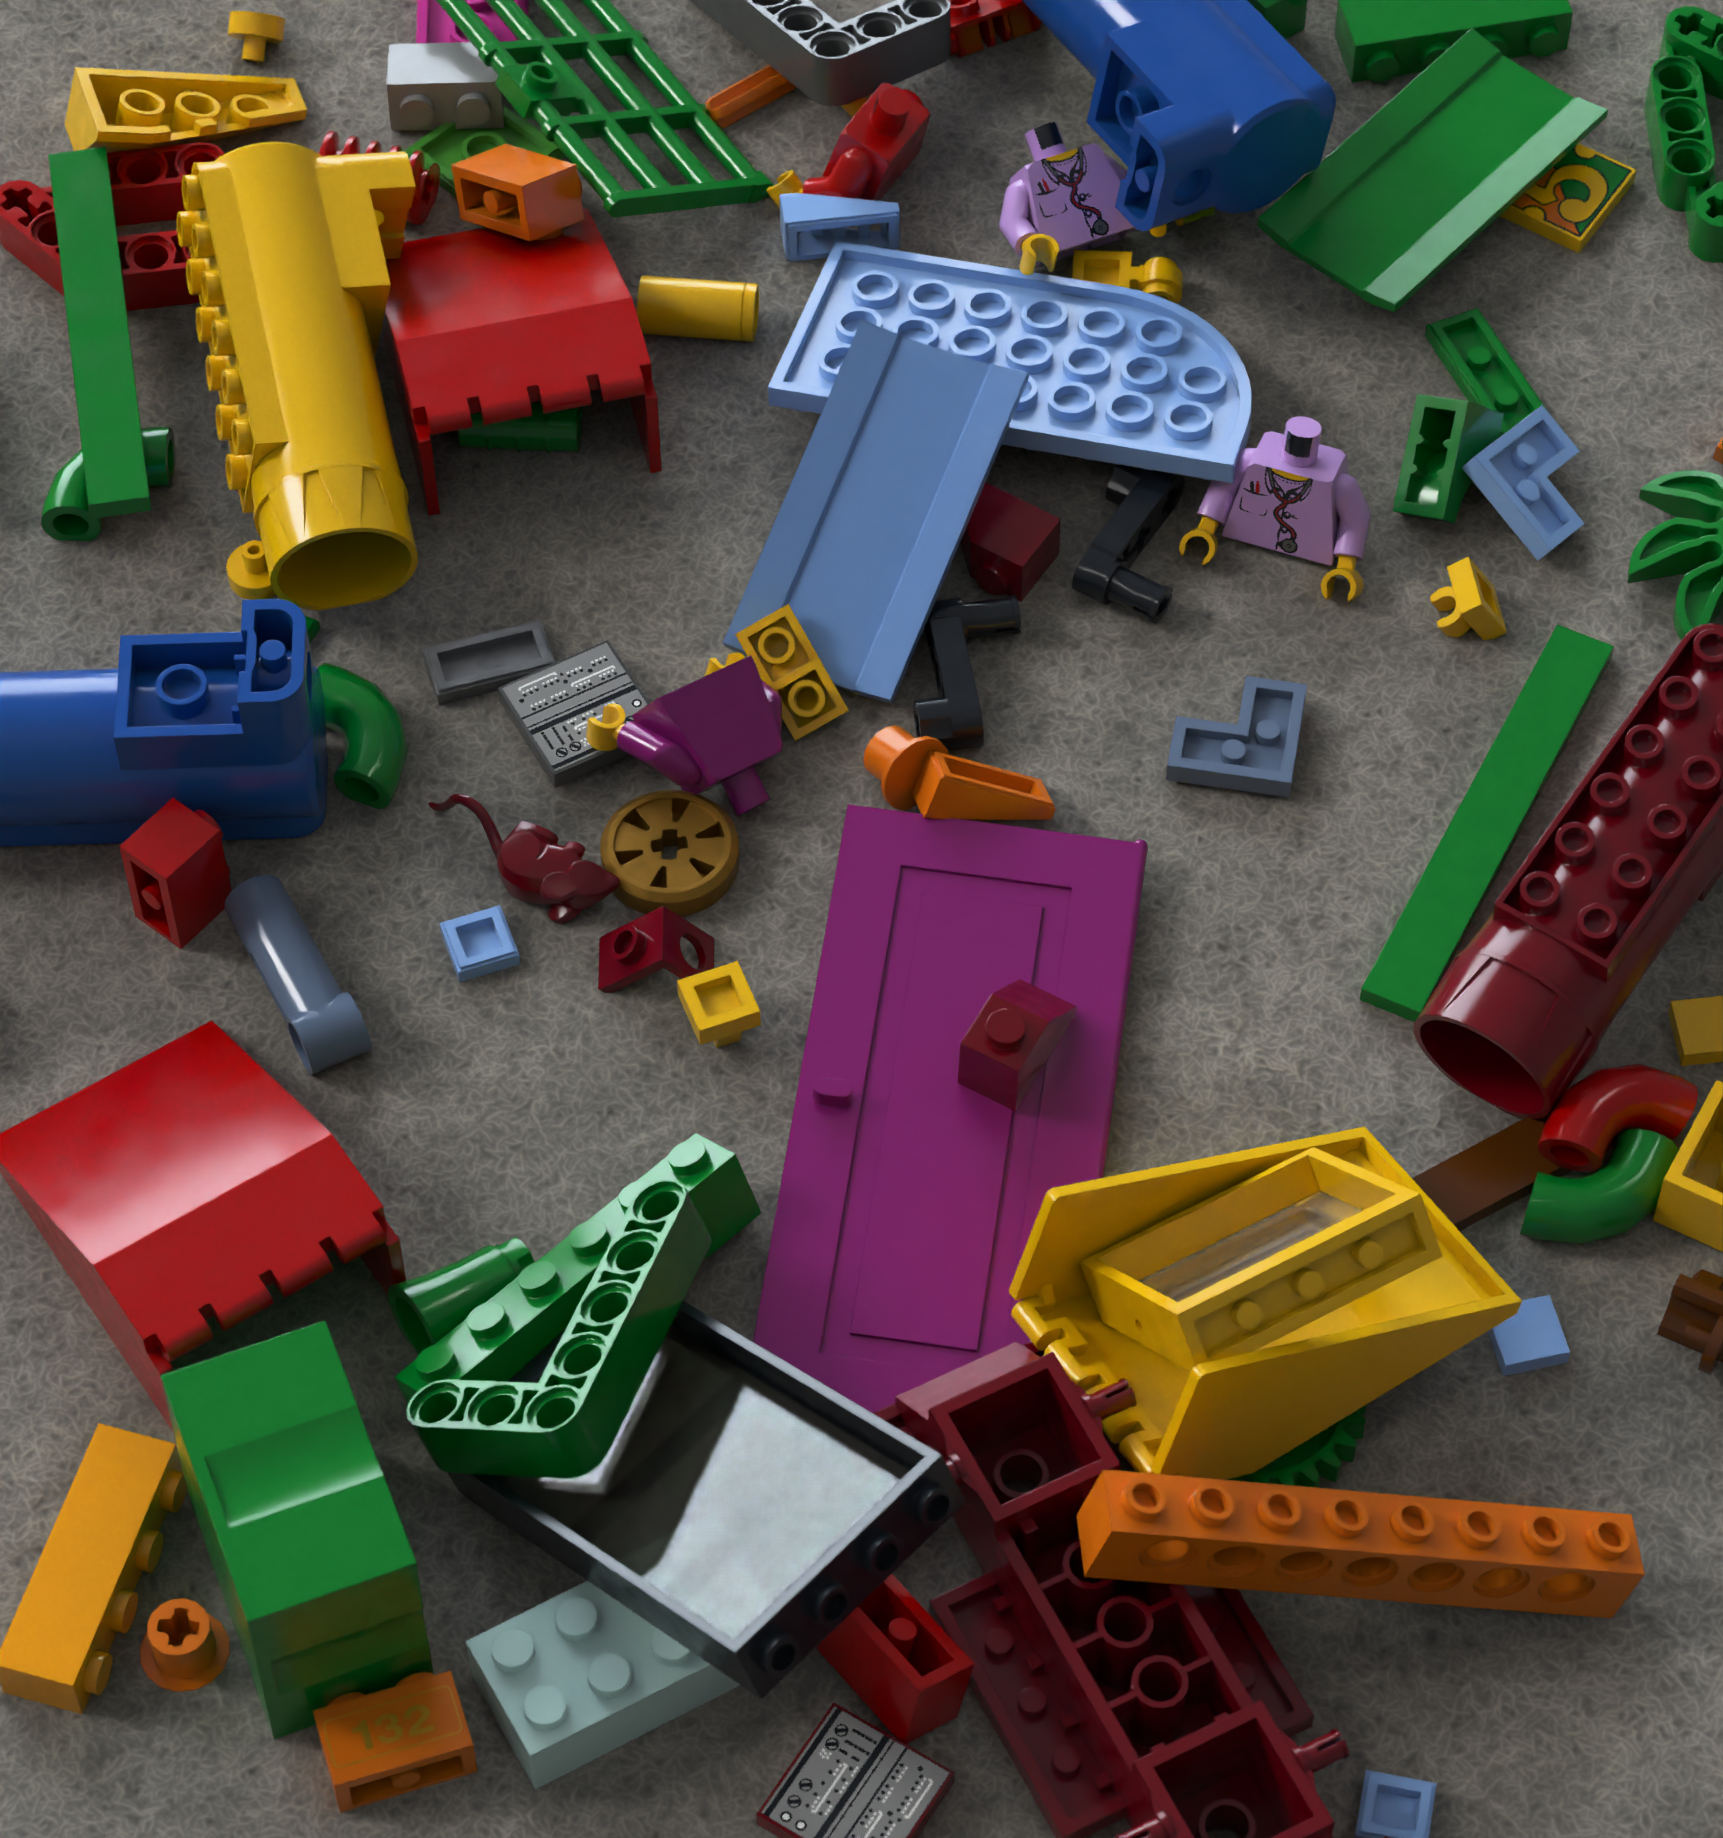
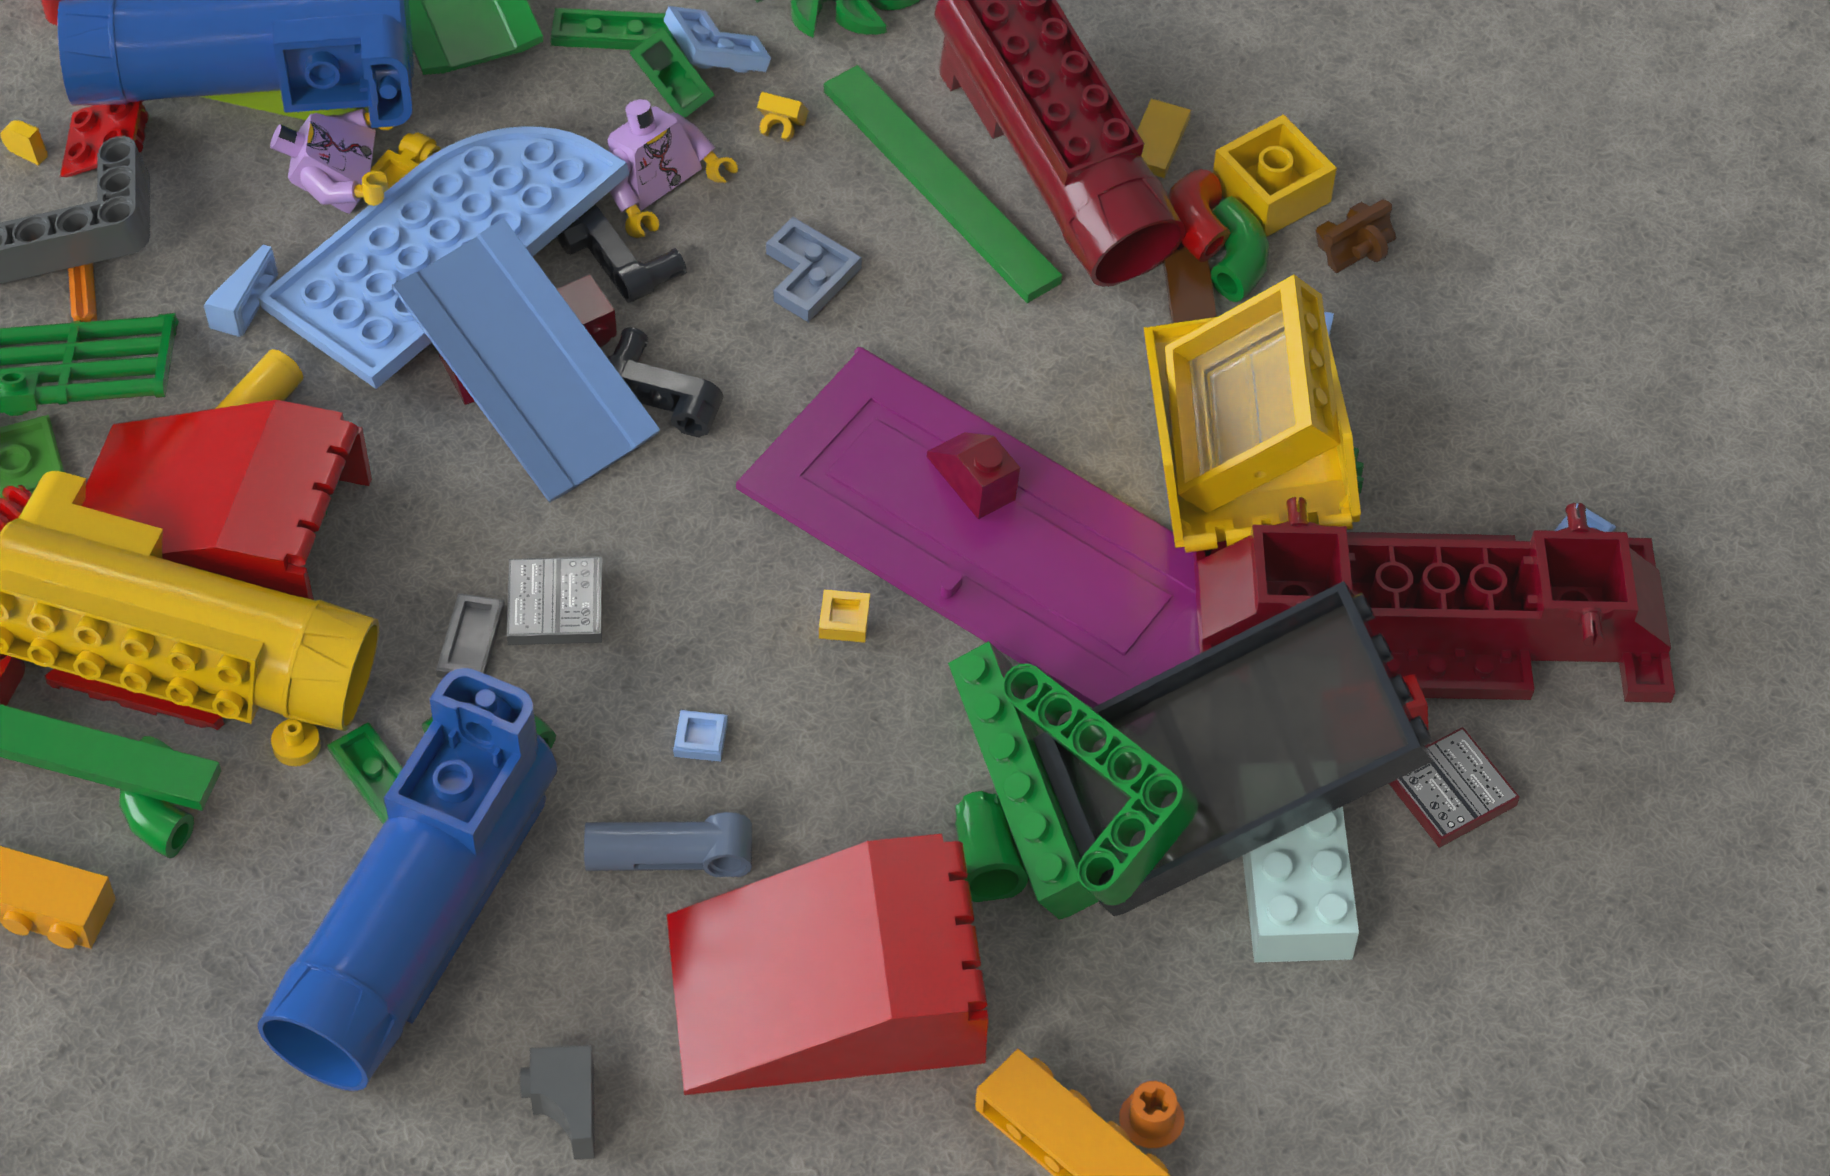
camera: 65 degrees left, 0 degrees up
(177, 872) = (553, 874): red brick -> none
(298, 1524) = (1158, 980): green tile -> none
(395, 1739) = (1290, 1015): orange brick -> none
(518, 192) = (94, 441): orange brick -> none
(539, 868) = (668, 673): dark red animal -> none
(649, 946) = (772, 644): dark red bracket -> none
(704, 732) = (629, 531): magenta torso -> none
(705, 855) = (700, 624): pearl gold wheel -> none
(793, 670) = (601, 473): yellow slope -> none
(871, 149) = (203, 242): red torso -> none
(896, 762) = (715, 444): orange piece -> none
(978, 791) = (765, 415): orange slope -> none
(1357, 1544) = (1441, 451): orange brick -> none

